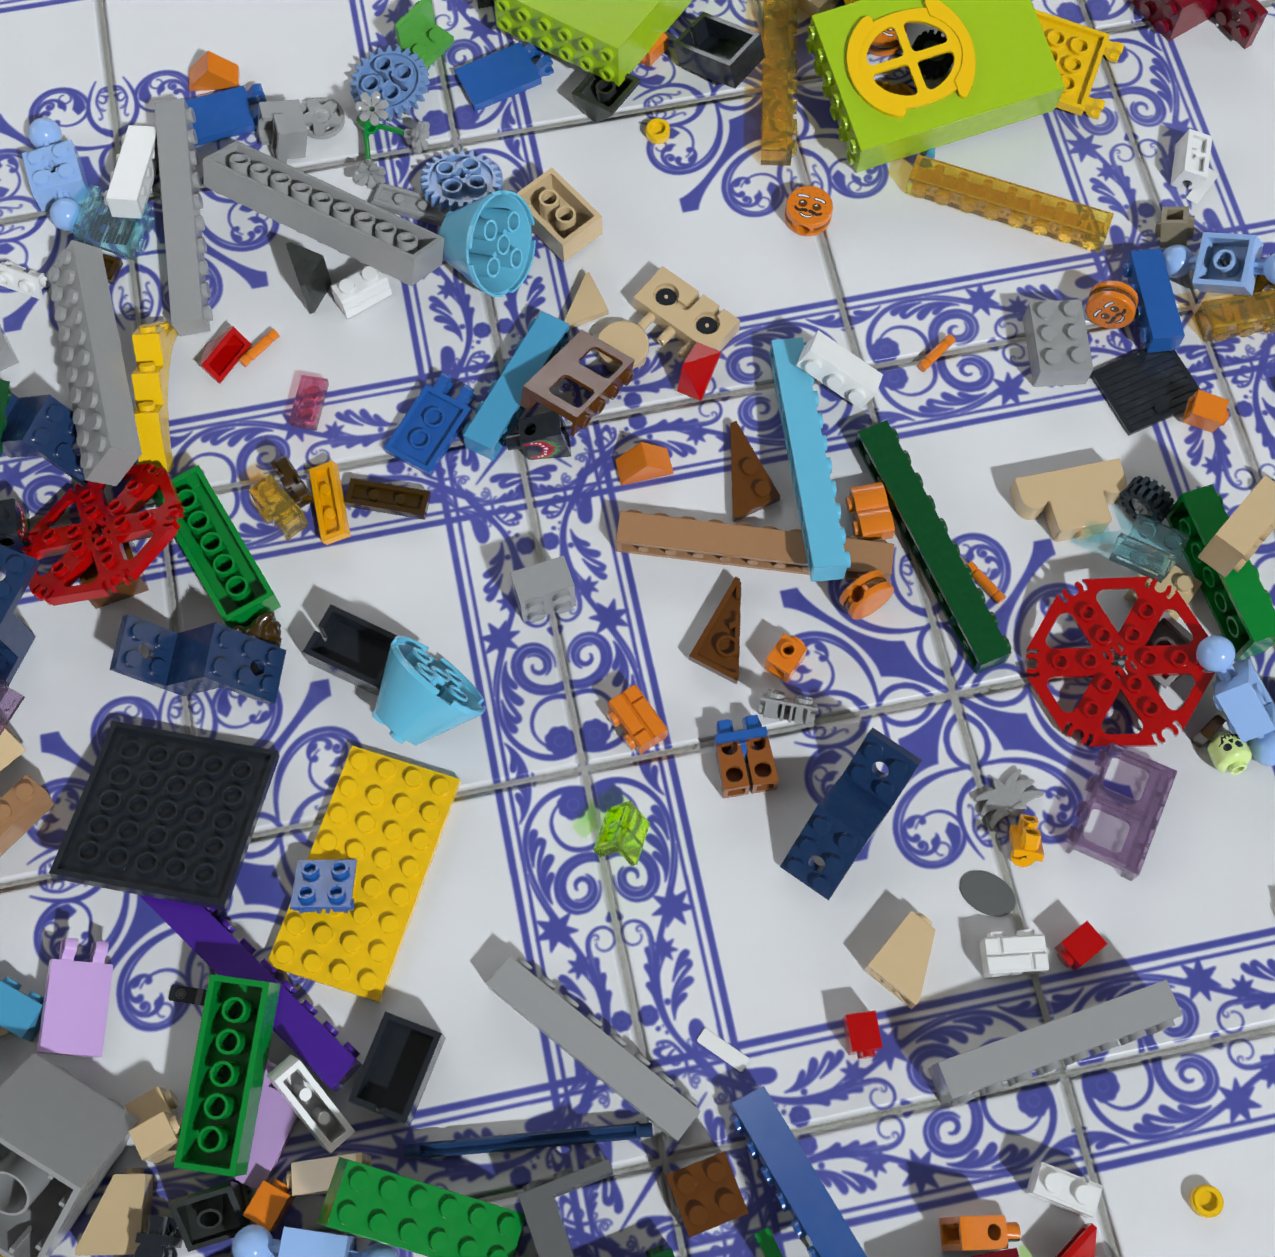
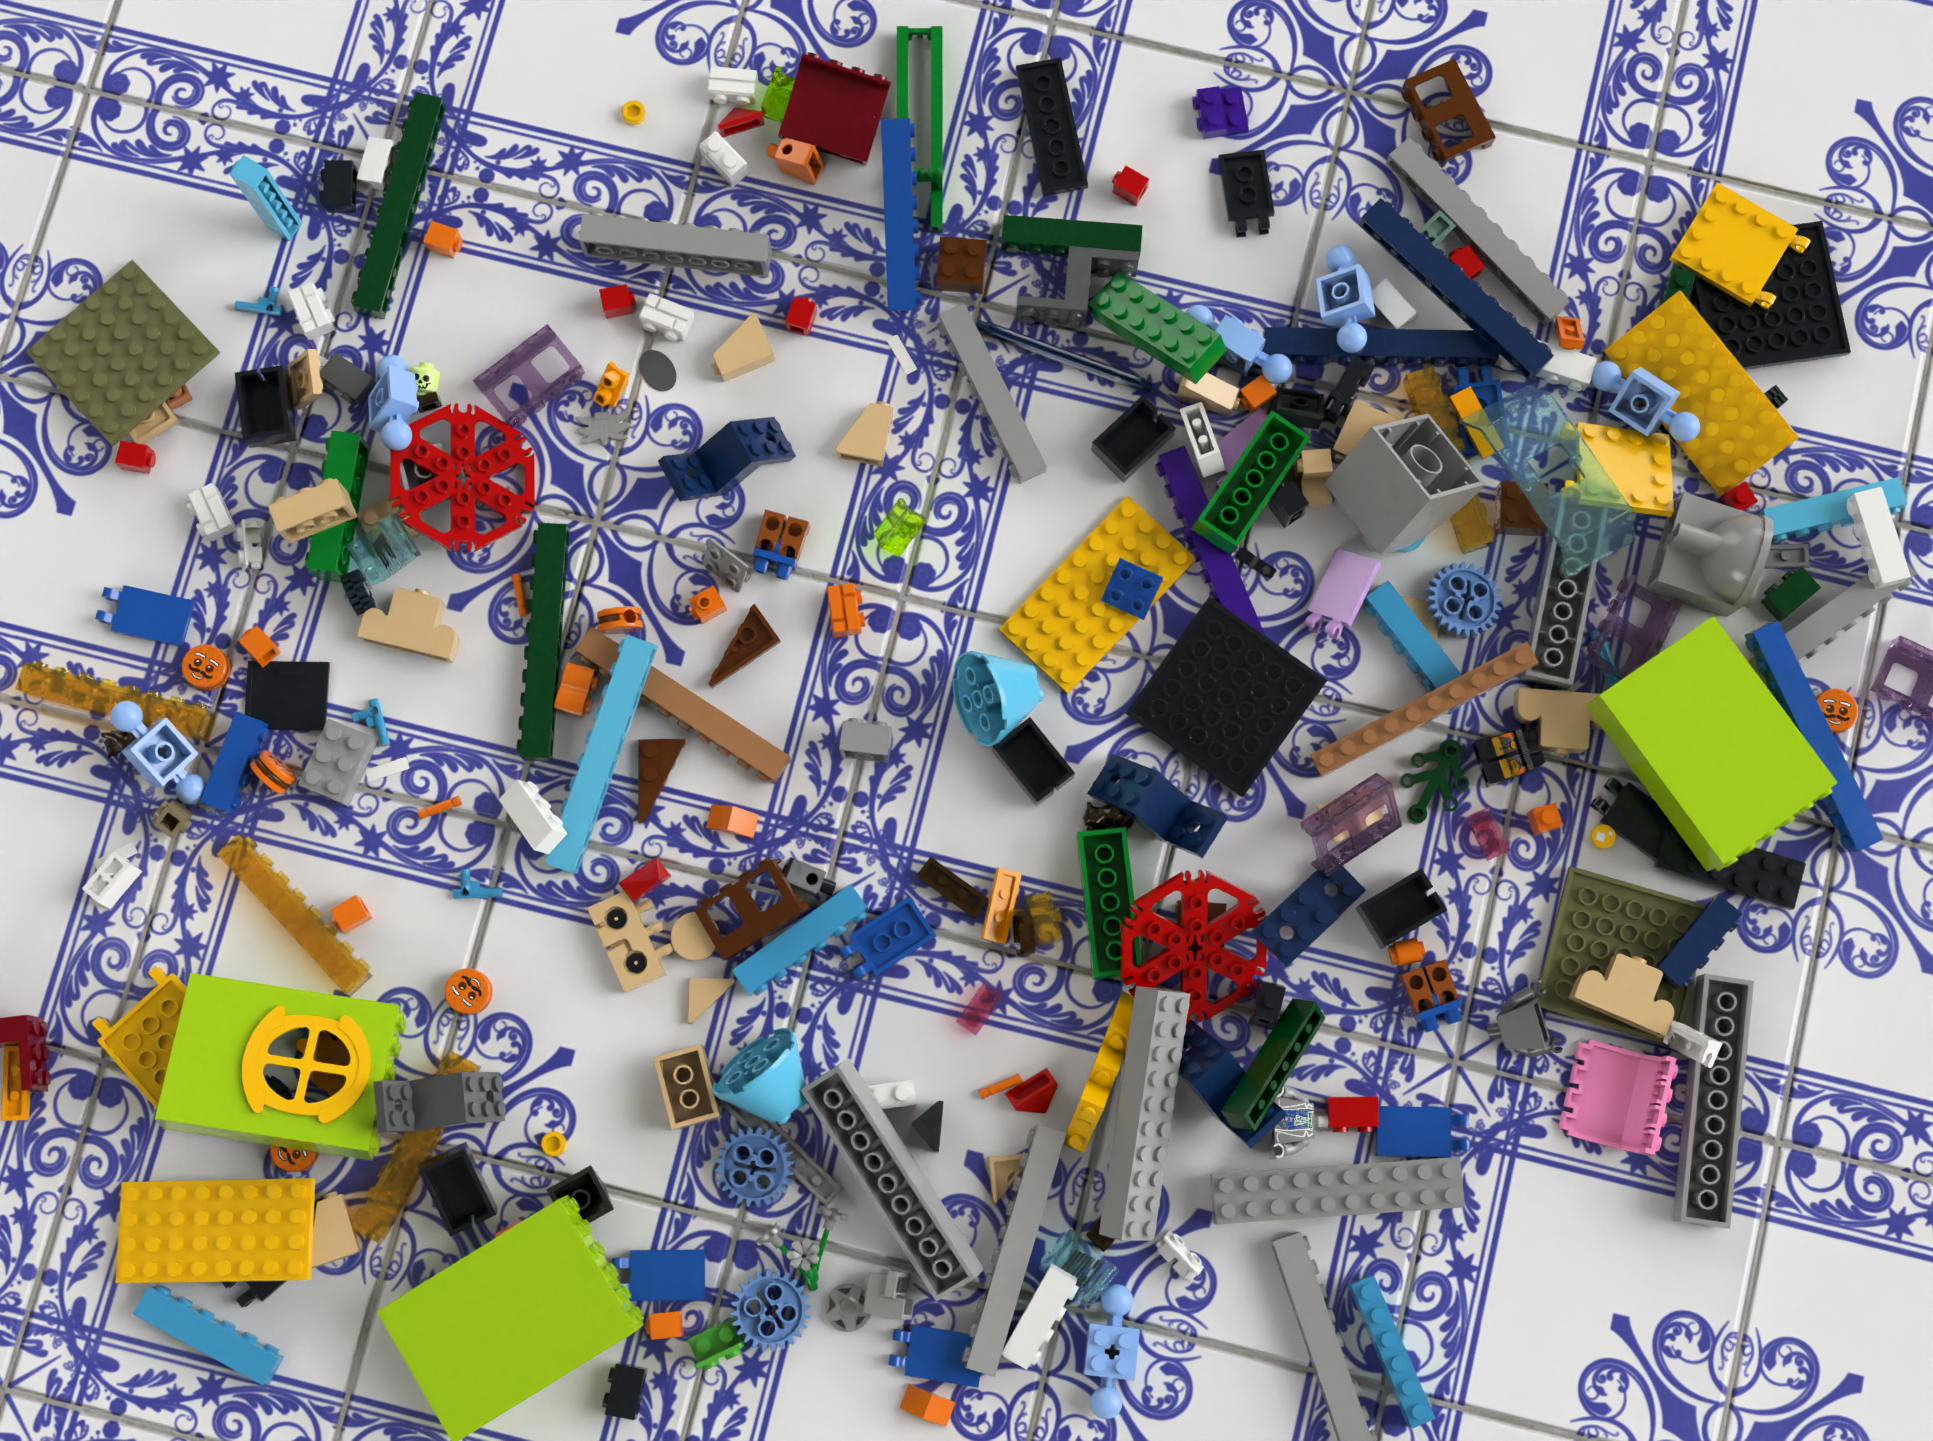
camera: 155 degrees left, 10 degrees up
(170, 1073) = (1288, 503): none -> black brick
(223, 279) = (1003, 1173): none -> tan tile
(478, 37) = (665, 1325): none -> orange brick
(708, 926) = (868, 436): none -> tan slope
(775, 92) = (439, 1102): none -> dark grey bracket
(858, 298) = (474, 888): none -> dark azure hose
(957, 225) = (350, 914): none -> orange brick
(1008, 366) = (387, 769): none -> white sticker
(1050, 401) = (374, 720): none -> dark azure hose
(1241, 372) = (206, 667): none -> orange head

